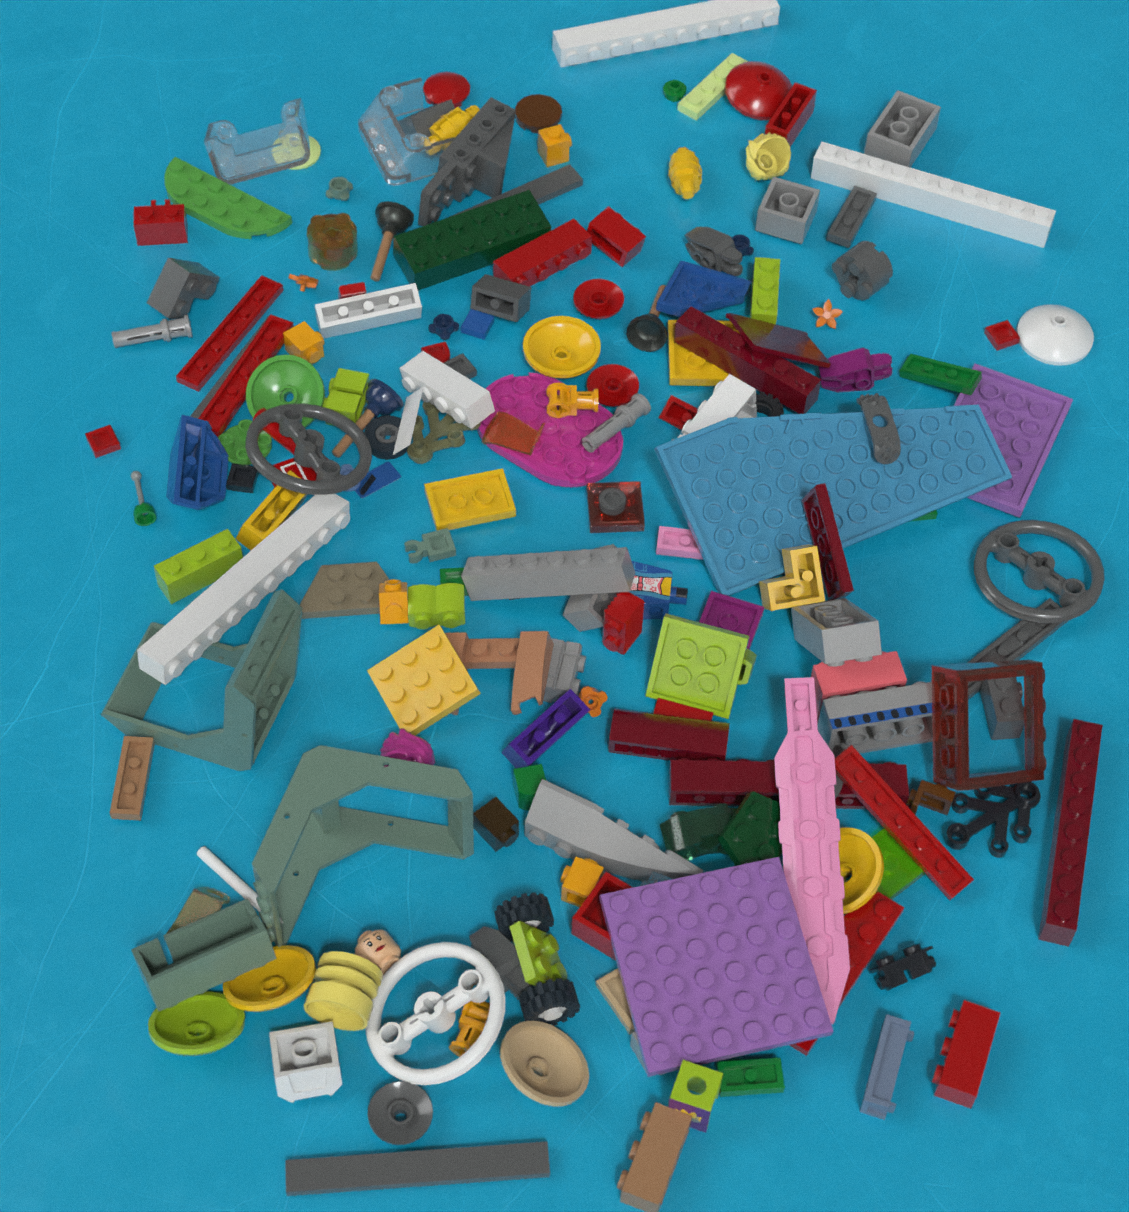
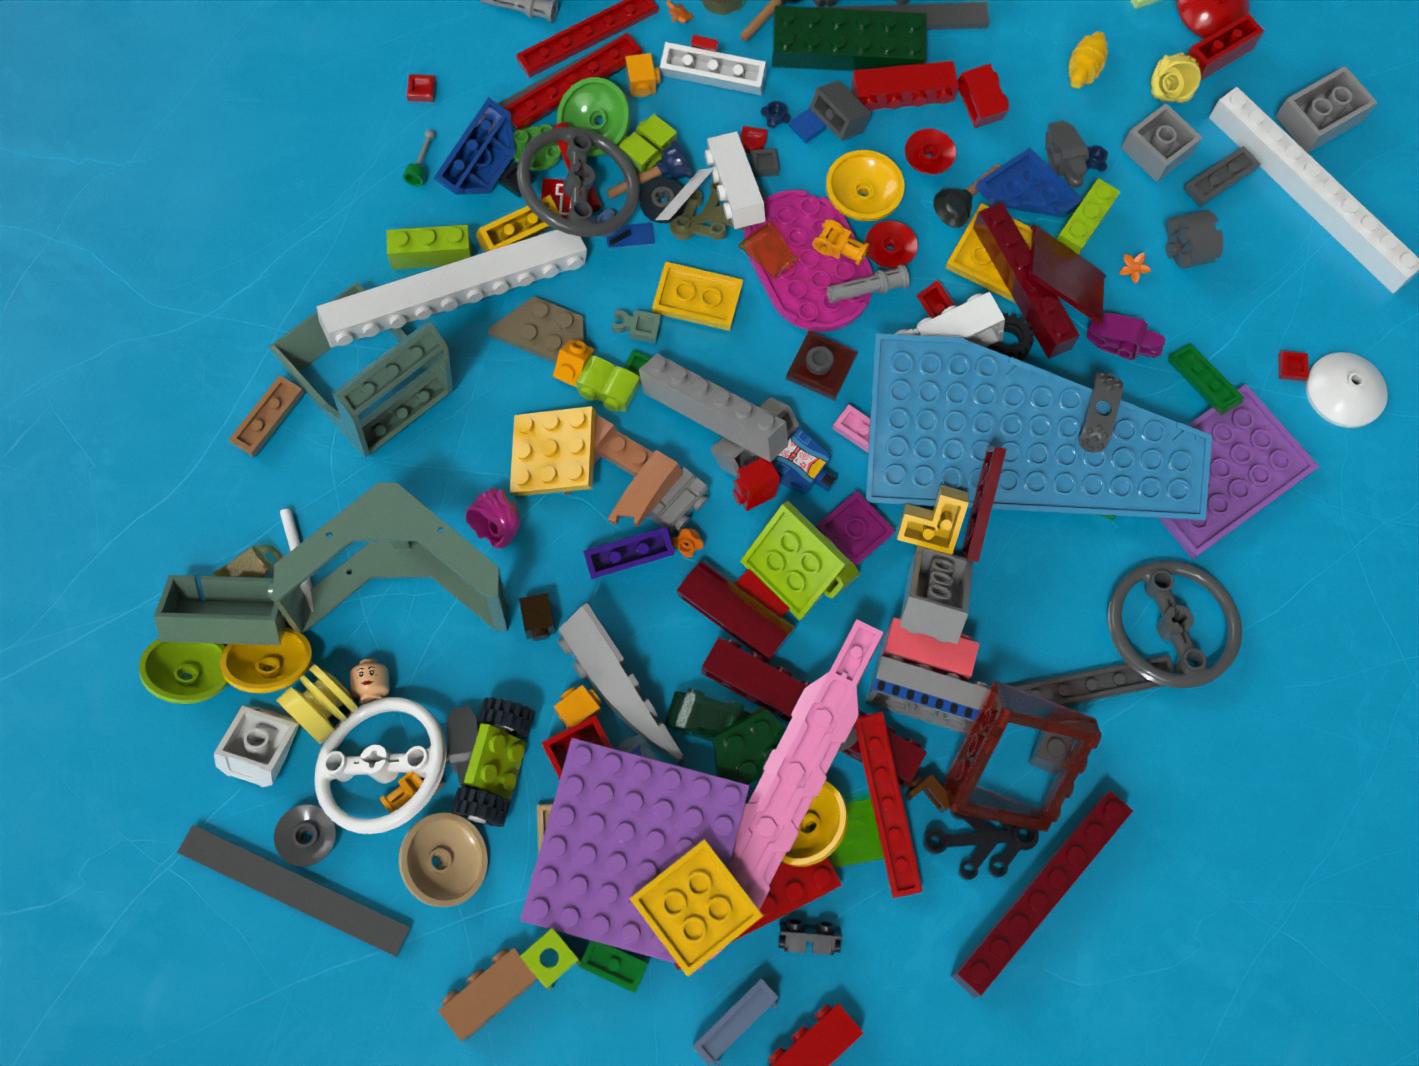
camera: 25 degrees right, 15 degrees up
(526, 784) = (585, 592): green piece -> none
(798, 975) = (696, 907): none -> yellow plate

